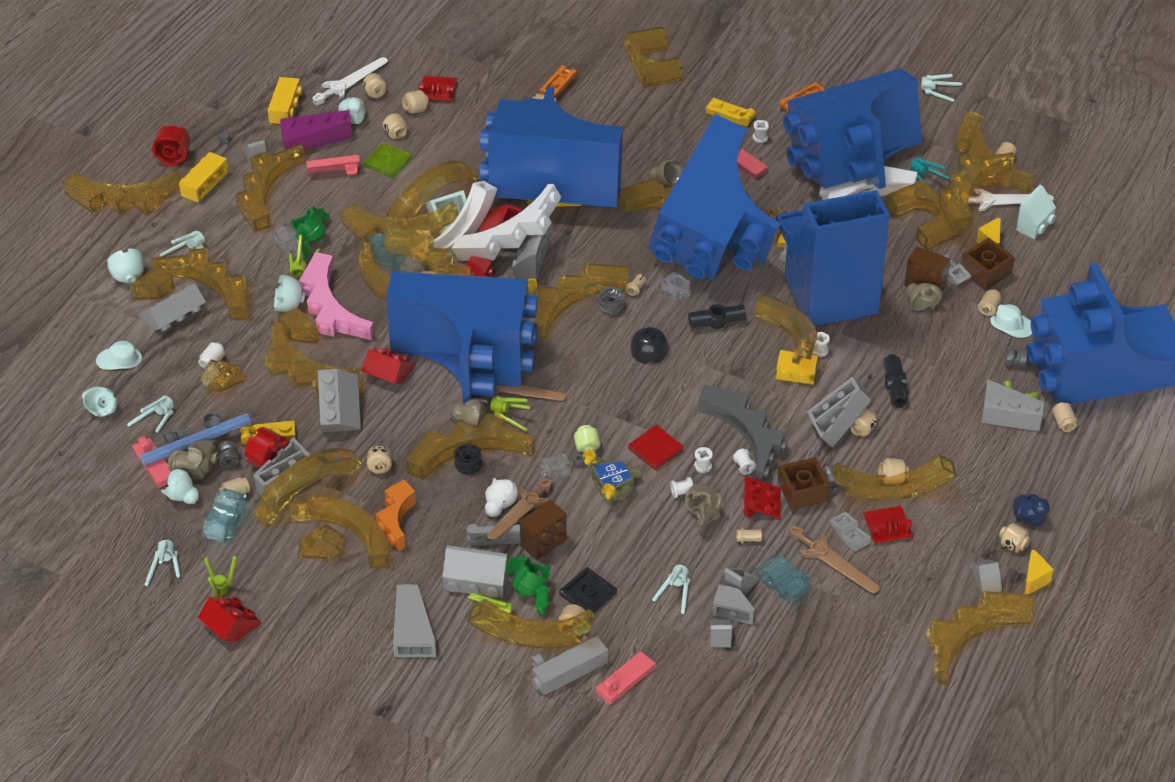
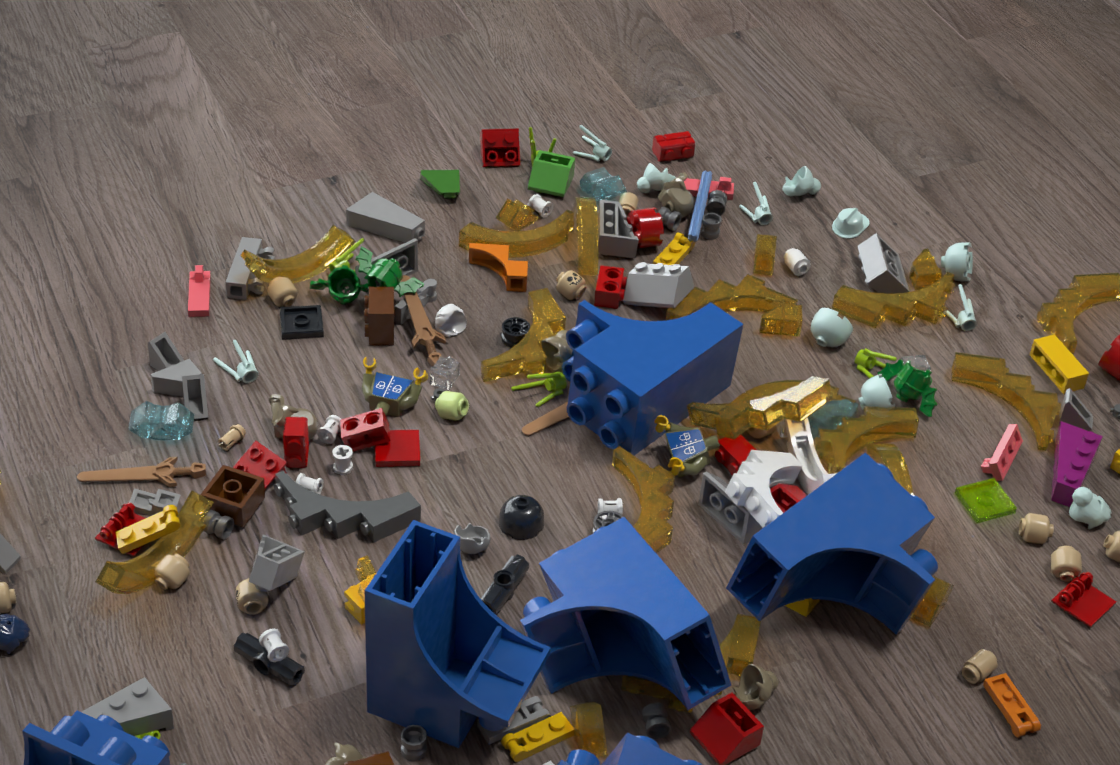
camera: 125 degrees right, 5 degrees down
(113, 508) = (673, 146): none -> red brick
(248, 554) = (551, 173): none -> bright green slope
(290, 538) = (542, 207): none -> white bush
(319, 622) = (442, 181): none -> bright green slope
(330, 314) = (804, 349): bright pink arch -> none
(343, 238) = (876, 393): none -> light aqua cylinder
(358, 436) = (610, 286): none -> red brick
(508, 539) = (386, 273): none -> green helmet
(594, 310) = (616, 506): none -> white bush
(670, 459) = (365, 430): none -> red brick
(697, 352) = (473, 538): none -> light grey hair
(724, 480) = (296, 442): none -> red brick
(882, 496) = (148, 529): none -> yellow plate
(894, 366) = (274, 645): none -> white bush

